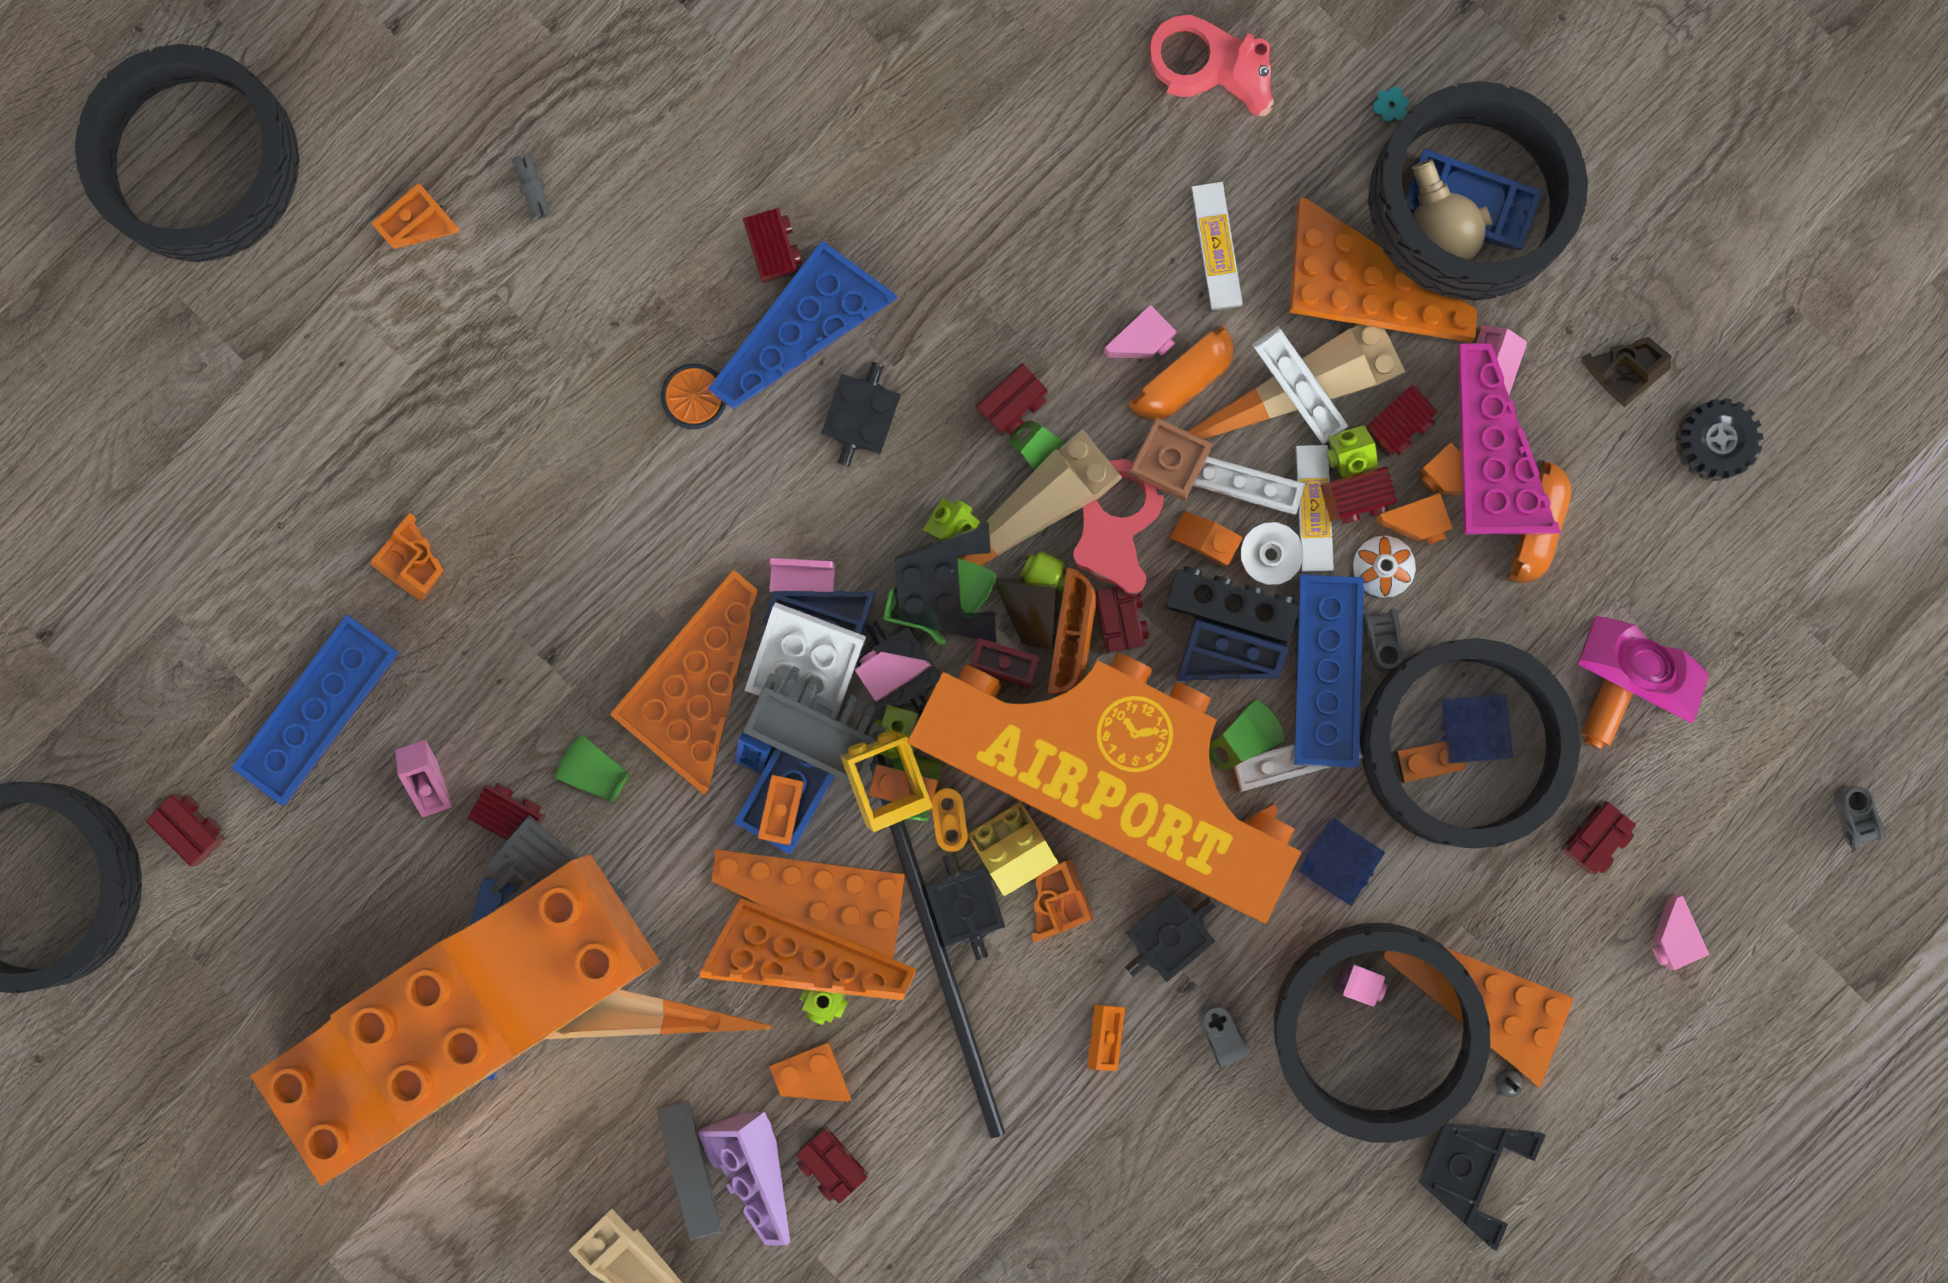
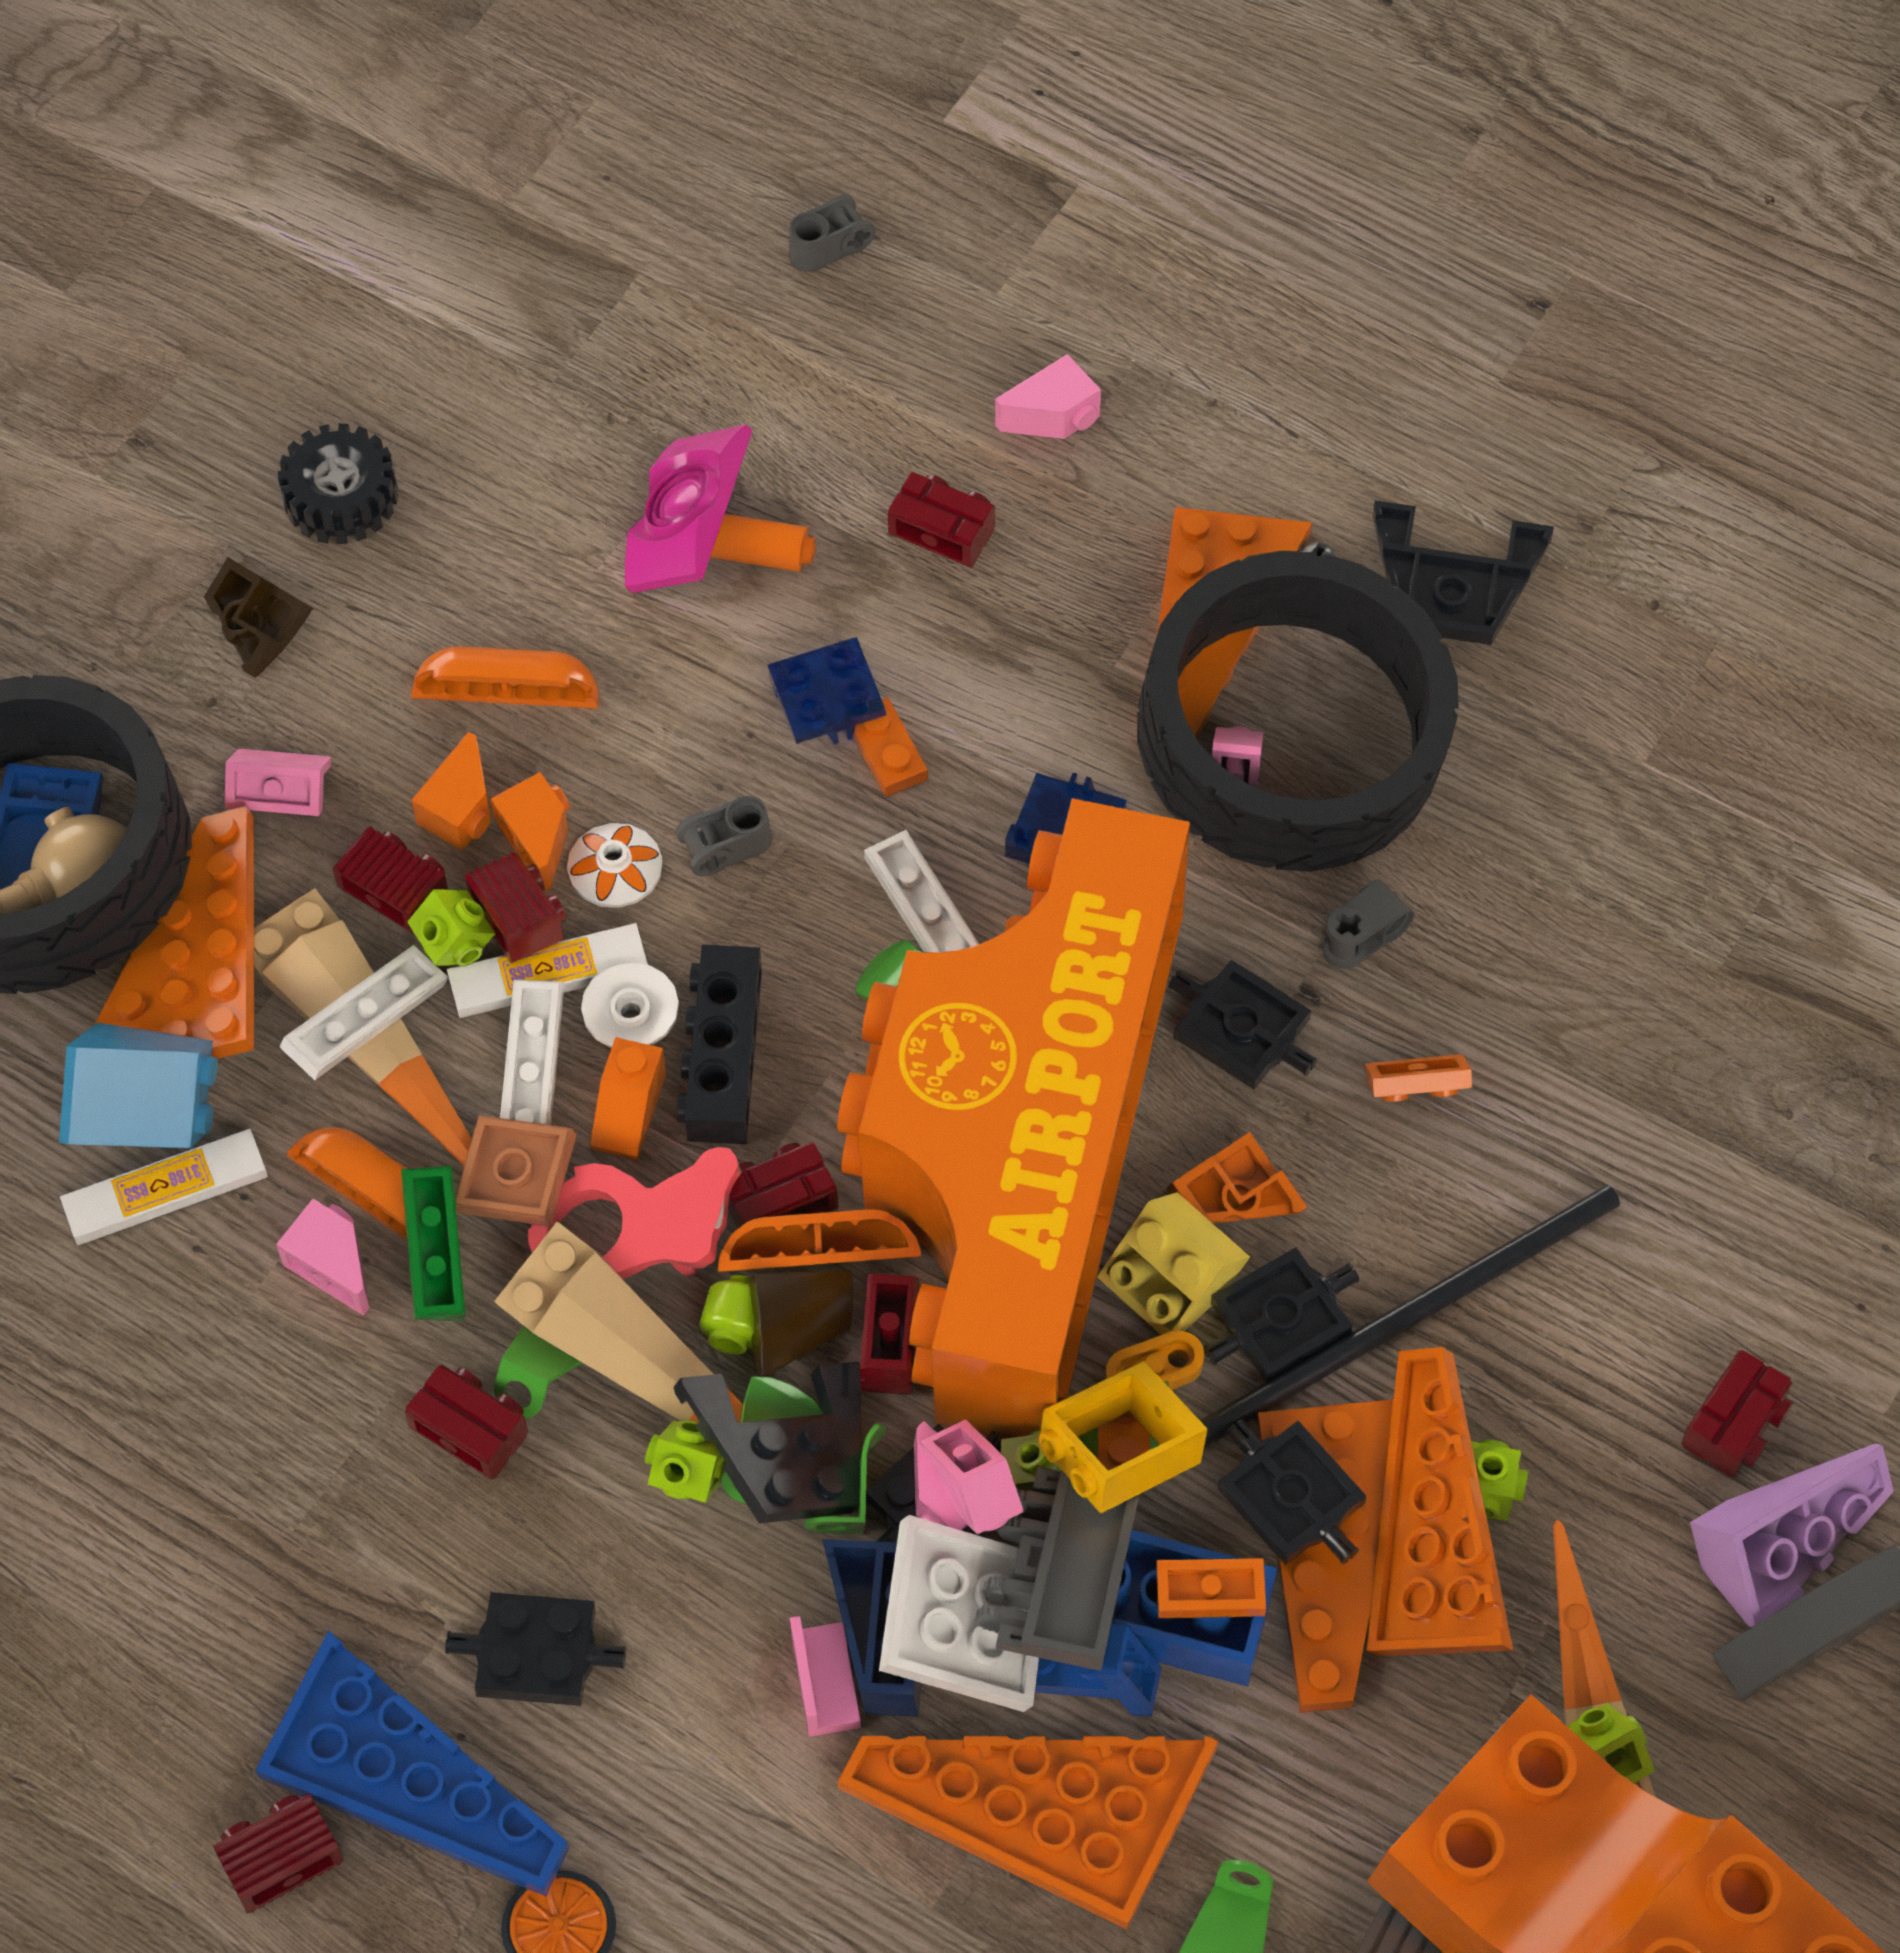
camera: 105 degrees left, 25 degrees down
(624, 1013) = (1616, 1740): none -> lime brick
(811, 1075) = (1610, 1482): orange wing -> none
(840, 878) = (1291, 1492): none -> black plate
(882, 684) = (973, 1476): none -> bright pink slope
(1130, 399) = (433, 1244): none -> green slope
(1229, 653) = (797, 1031): dark blue wedge -> none
(1275, 234) = (136, 1088): none -> dark azure slope
(1328, 671) = (790, 893): blue plate -> none
(1496, 461) = (425, 732): dark pink wing -> none
(1560, 733) = (846, 577): black tyre -> none

